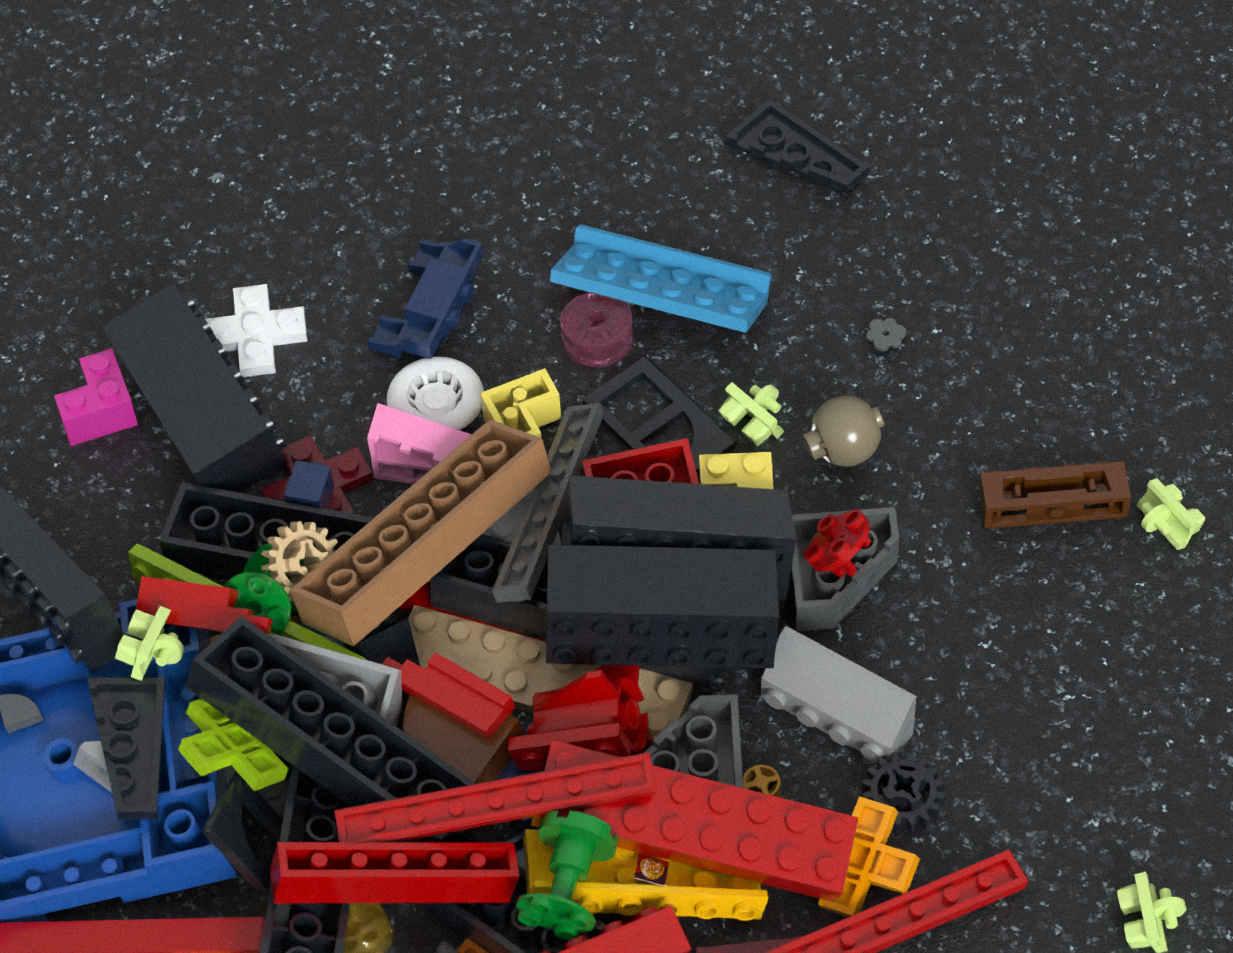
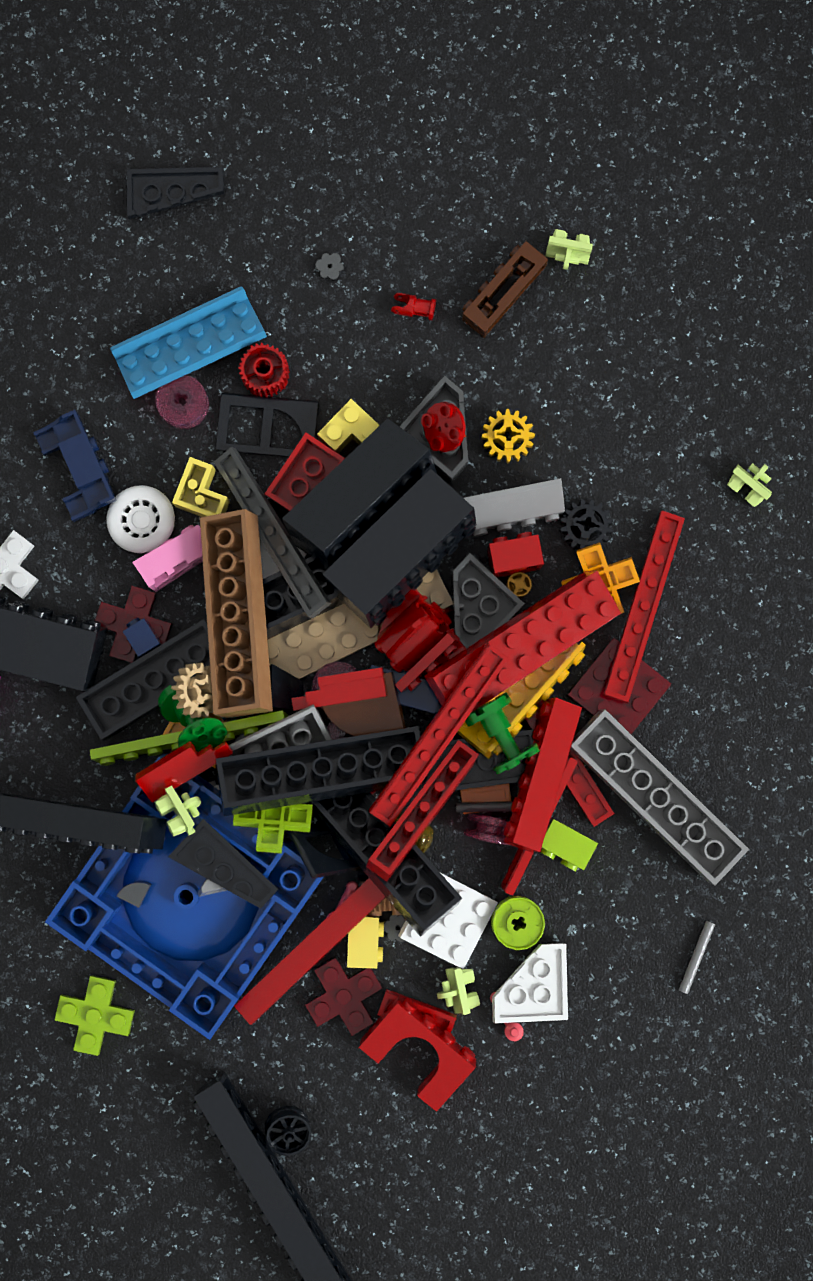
camera: 50 degrees left, 30 degrees up
(651, 869) = (526, 687): sticker -> none
(709, 363) = (273, 360): none -> red brick
(762, 422) = (322, 379): yellowish green hips -> none
(787, 742) = (515, 555): none -> red brick
(844, 431) = (373, 350): dark tan brick -> none
(907, 633) = (498, 436): none -> yellow gear
(936, 434) = (414, 306): none -> red piece

